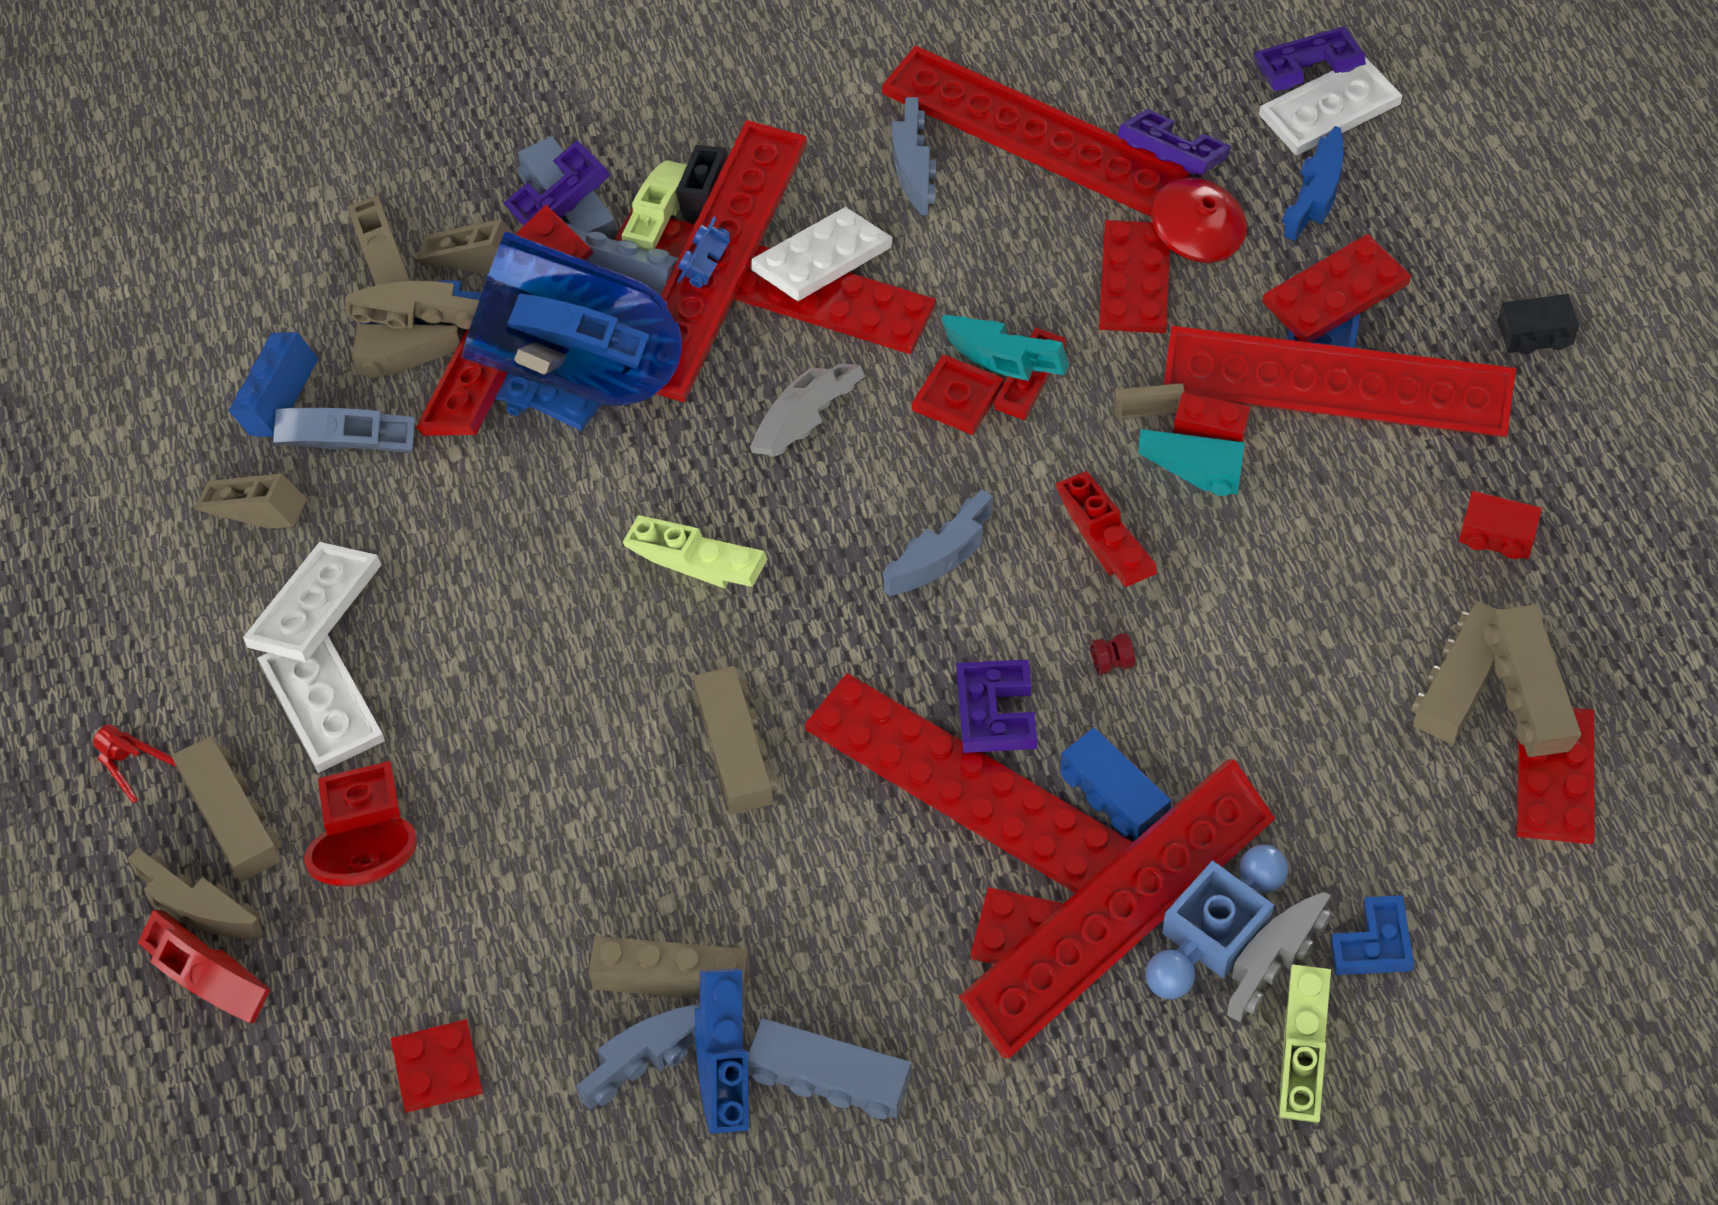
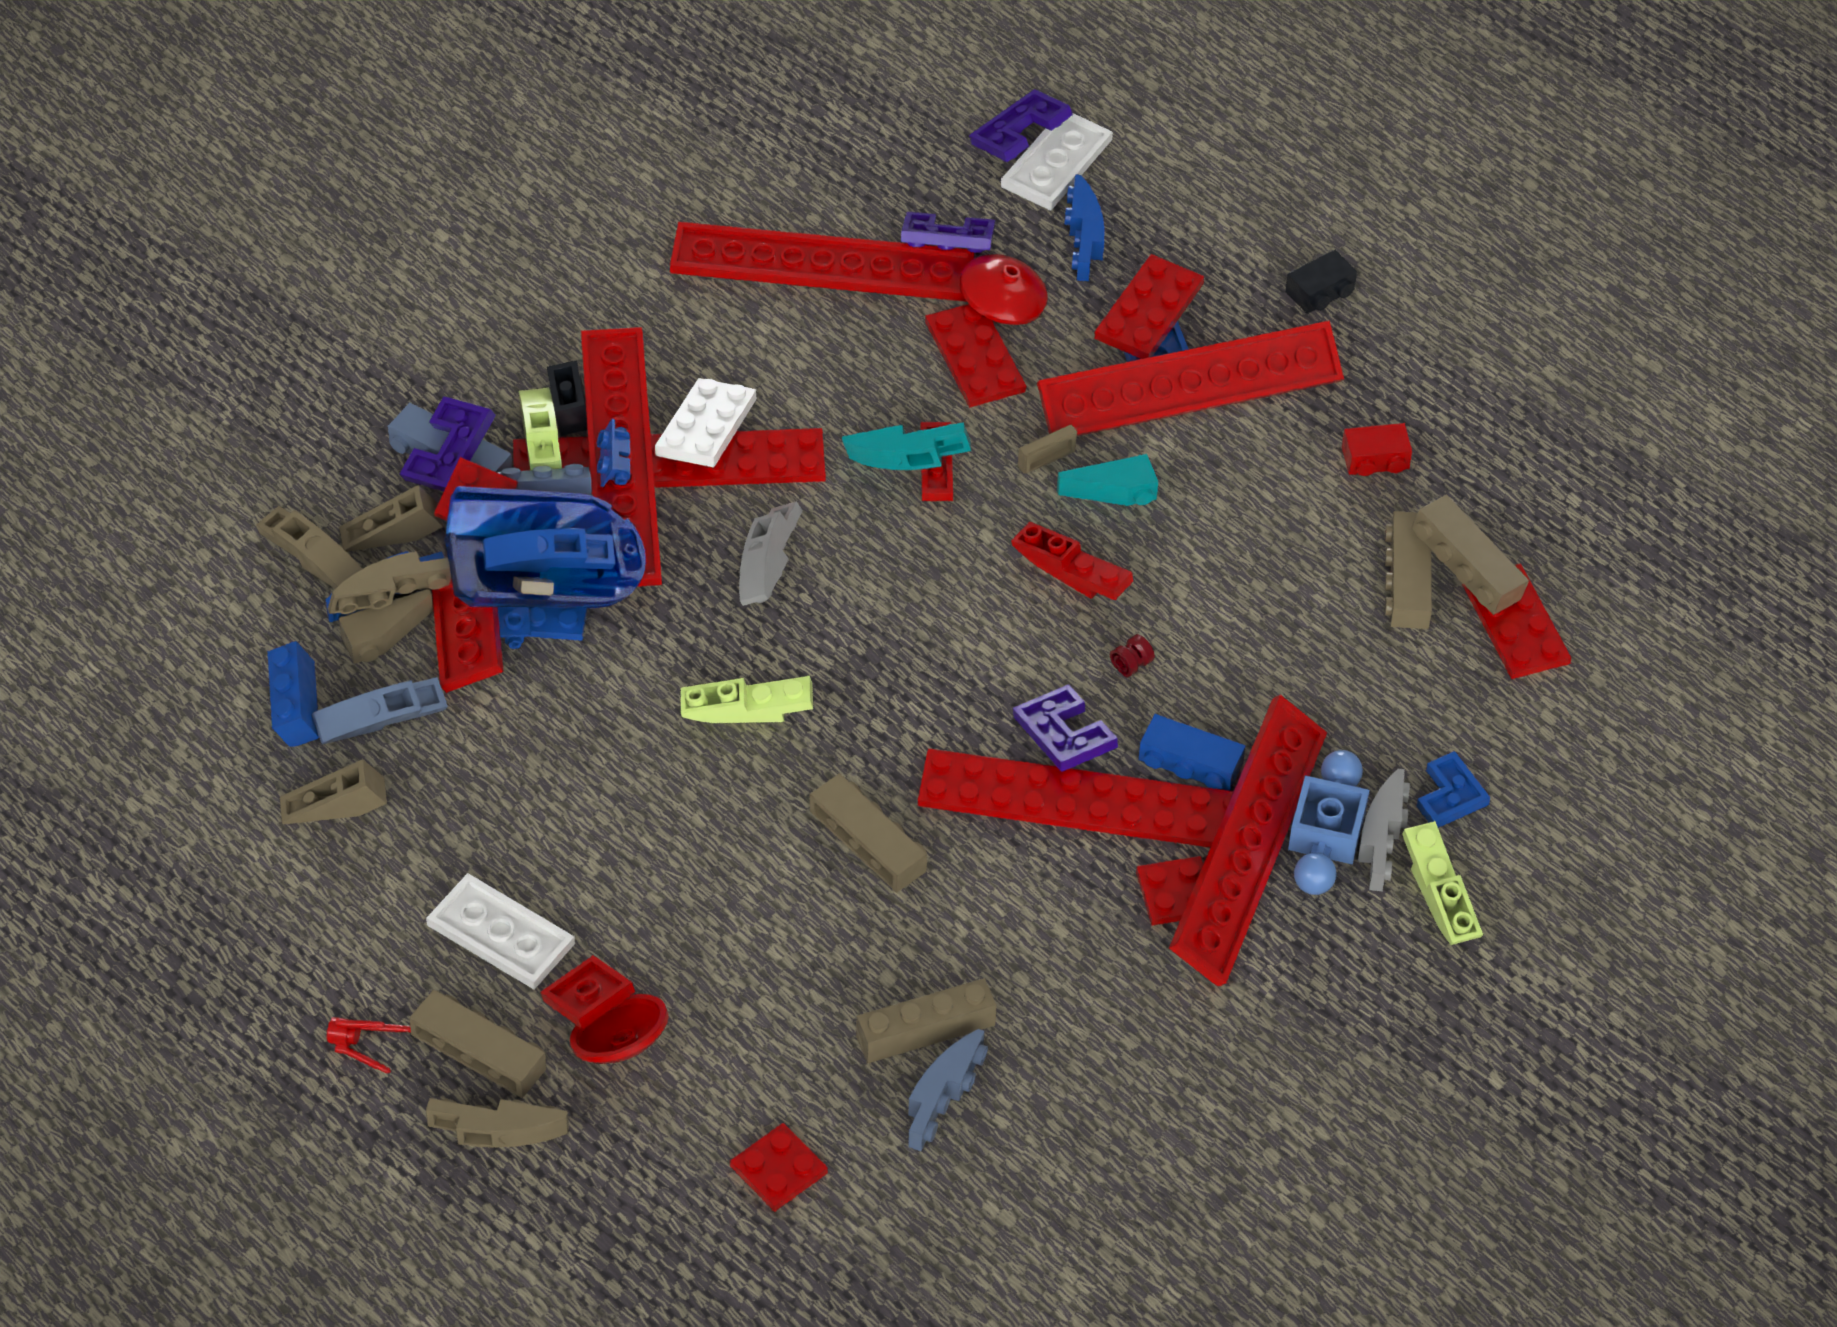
camera: 30 degrees left, 5 degrees down
(201, 969) = (541, 1167): red slope -> none
(312, 601) = (447, 855): white plate -> none
(721, 1052) = (1001, 1056): blue slope -> none
(829, 1069) = (1094, 1043): sand blue brick -> none
(913, 158) = (734, 321): sand blue slope -> none
(939, 553) = (947, 626): sand blue slope -> none
(957, 394) = (886, 498): red plate -> none
(1211, 418) = (1107, 444): red brick -> none

